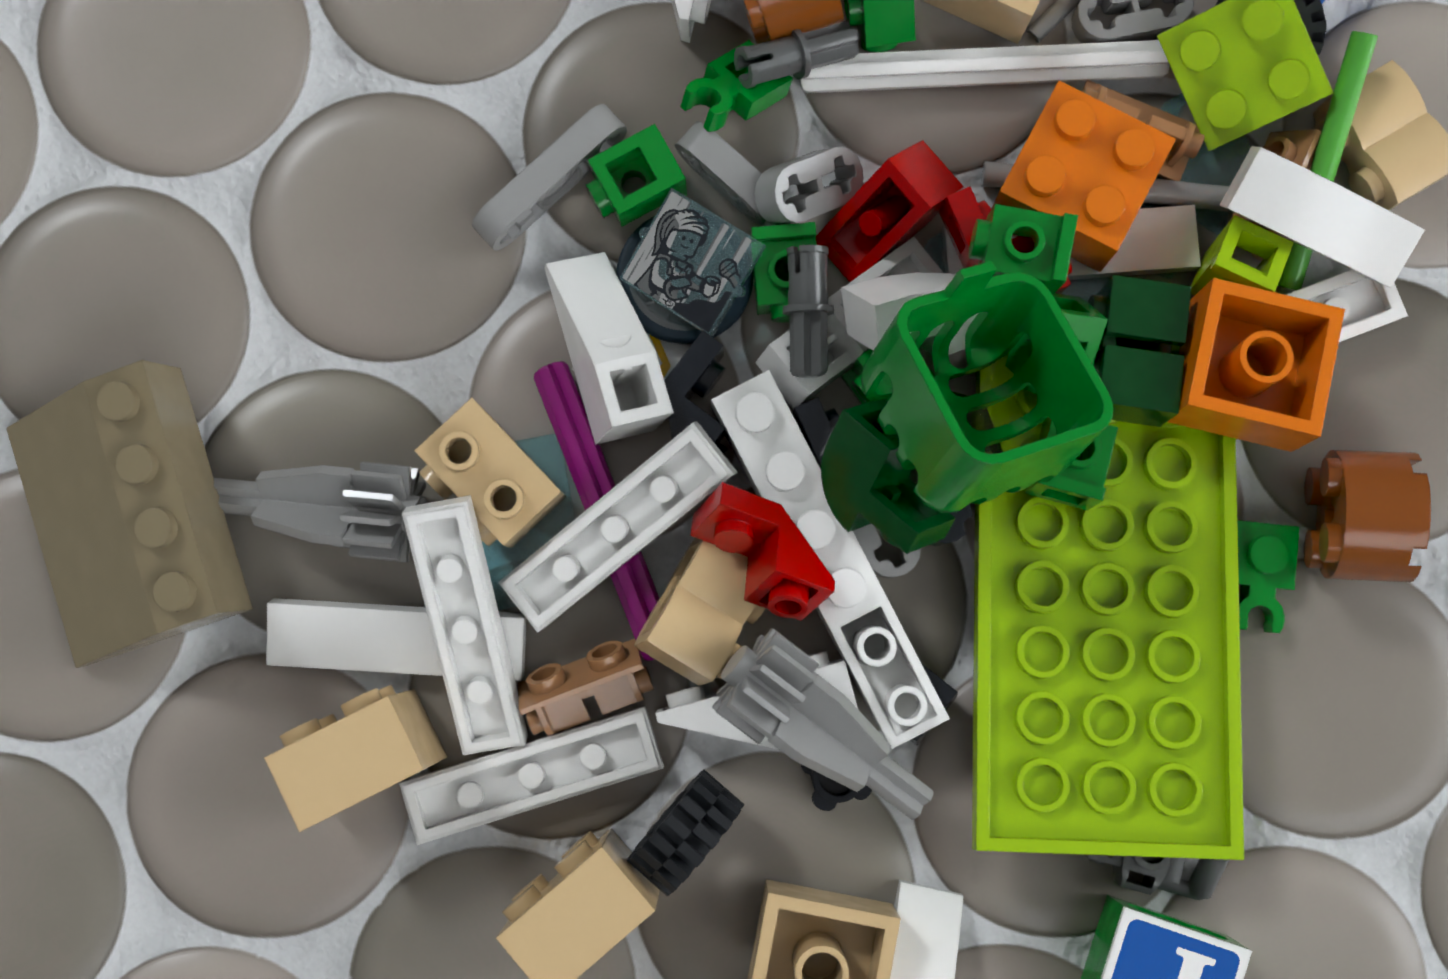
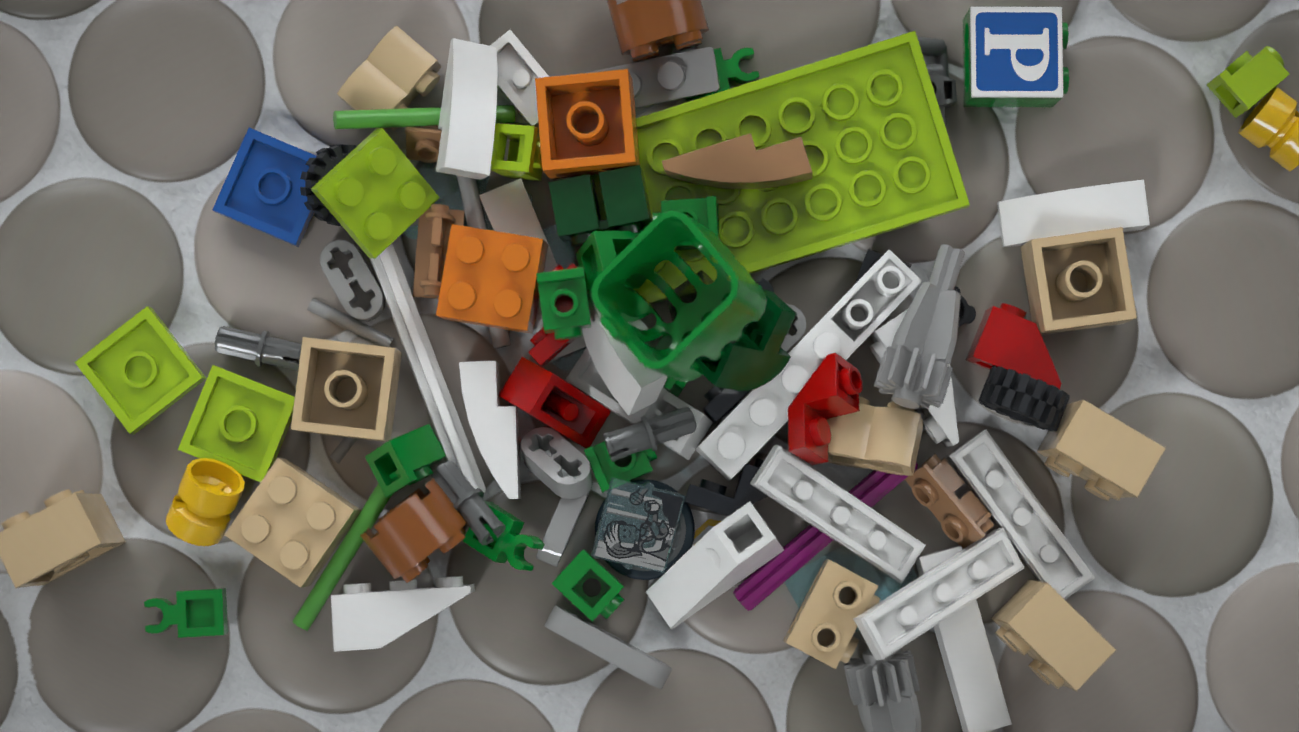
camera: 110 degrees left, 0 degrees up
(762, 845) = (1012, 343): none -> red slope
(884, 121) = (492, 425): none -> white slope
(1130, 555) = (739, 165): none -> medium nougat slope
(1275, 509) = (672, 76): none -> light grey piece

